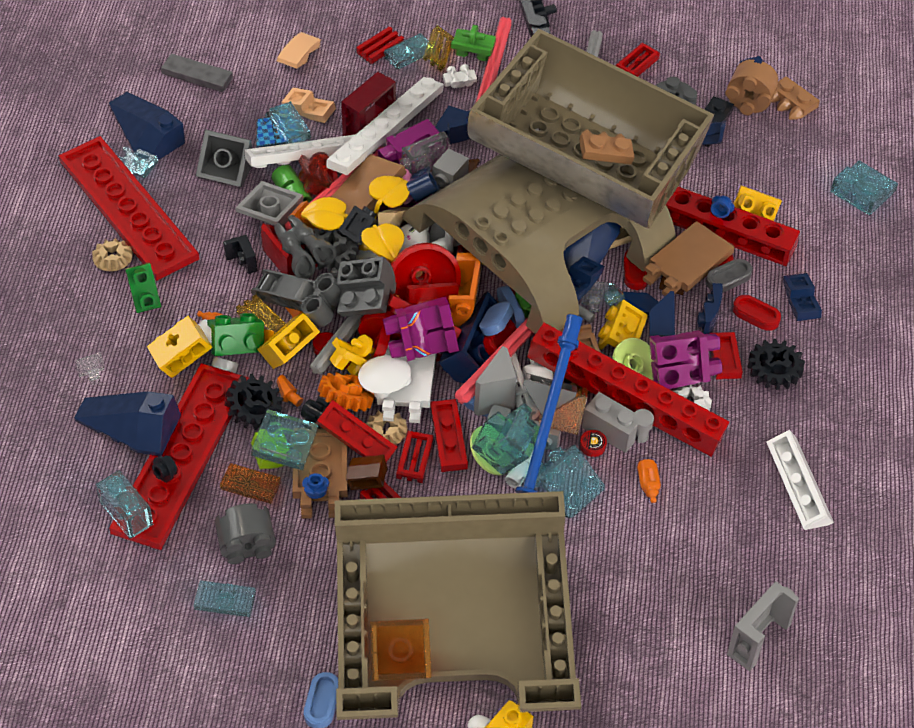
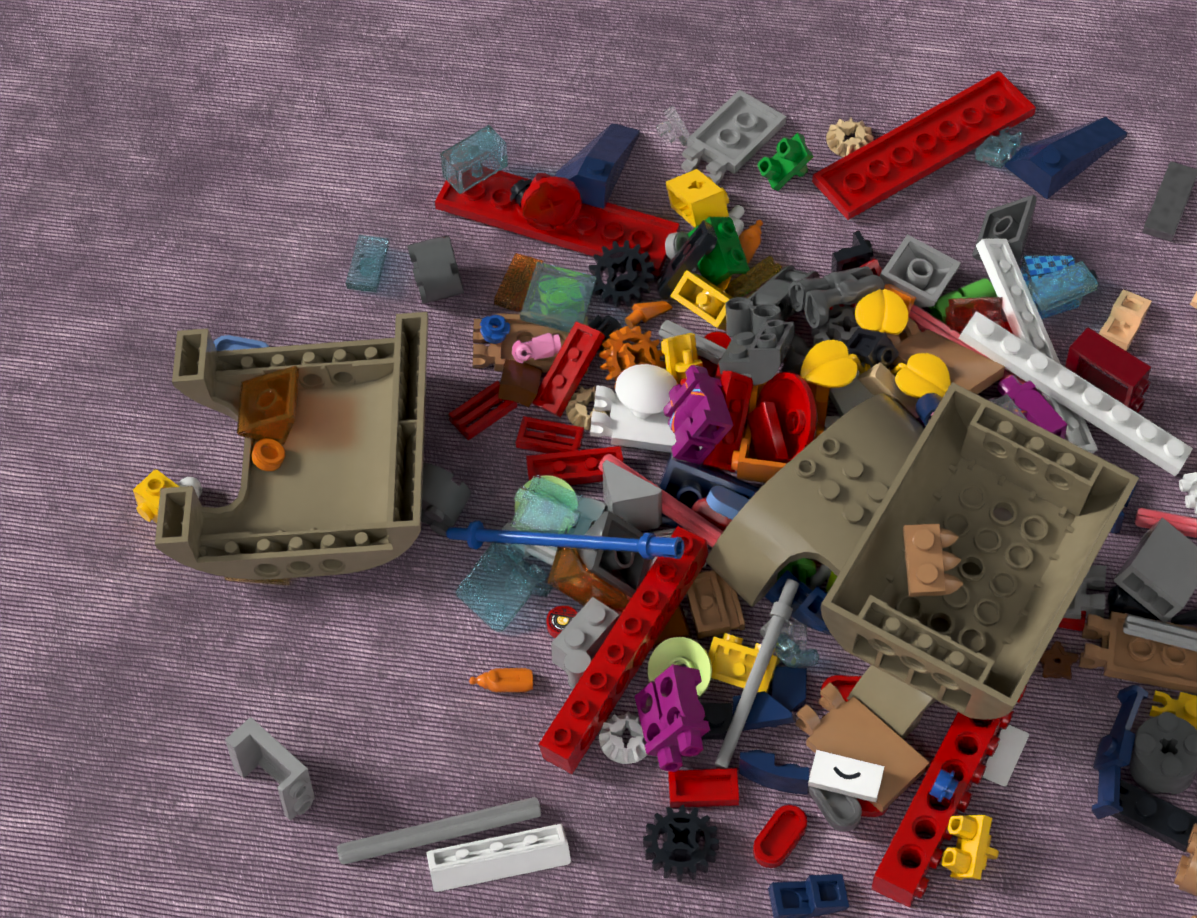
camera: 95 degrees right, 5 degrees up
(102, 330) = (732, 135): none -> light grey tile
(185, 439) = (550, 202): none -> red tile
(250, 348) = (687, 258): none -> black hinge
(336, 454) = (540, 347): none -> bright pink arm
(448, 656) = (268, 454): none -> orange tile
(594, 289) = (780, 614): none -> light grey bar
(717, 261) = (846, 776): none -> white tile
(787, 520) = (438, 830): none -> light grey axle

